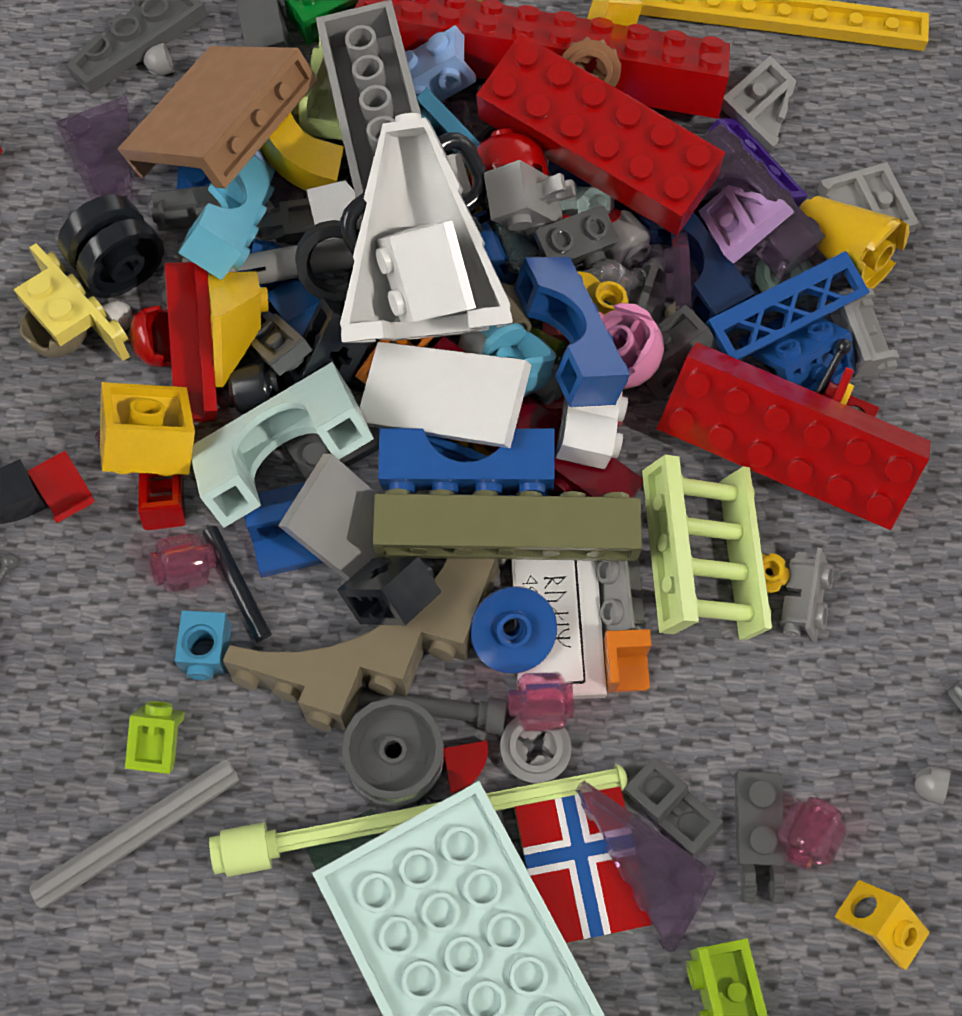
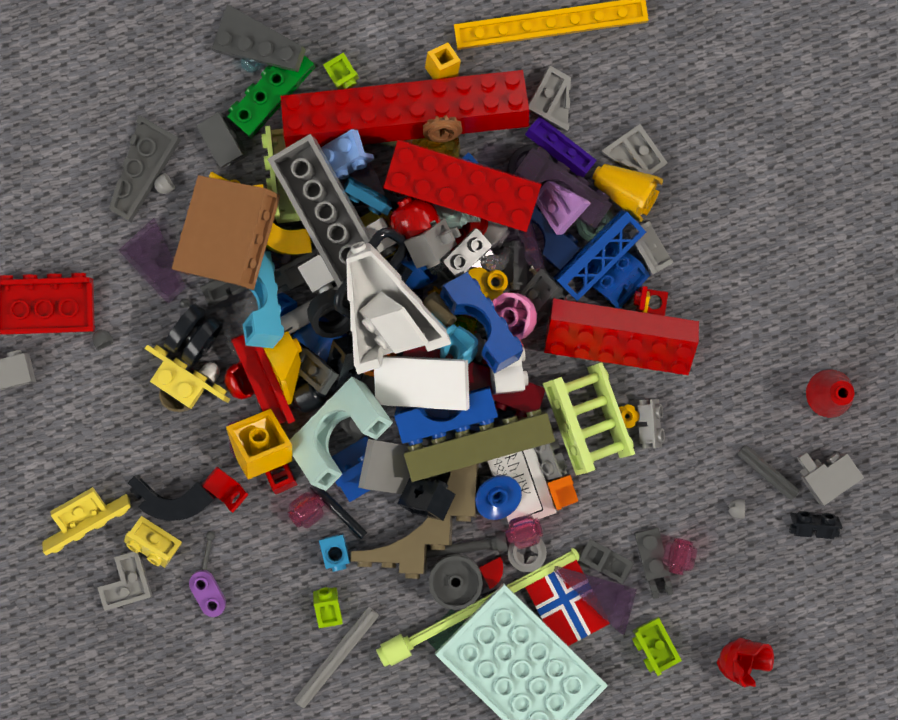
camera: 20 degrees left, 20 degrees up
(843, 347) = (638, 272): black hinge -> none
(891, 923) = (729, 589): yellow bracket -> none

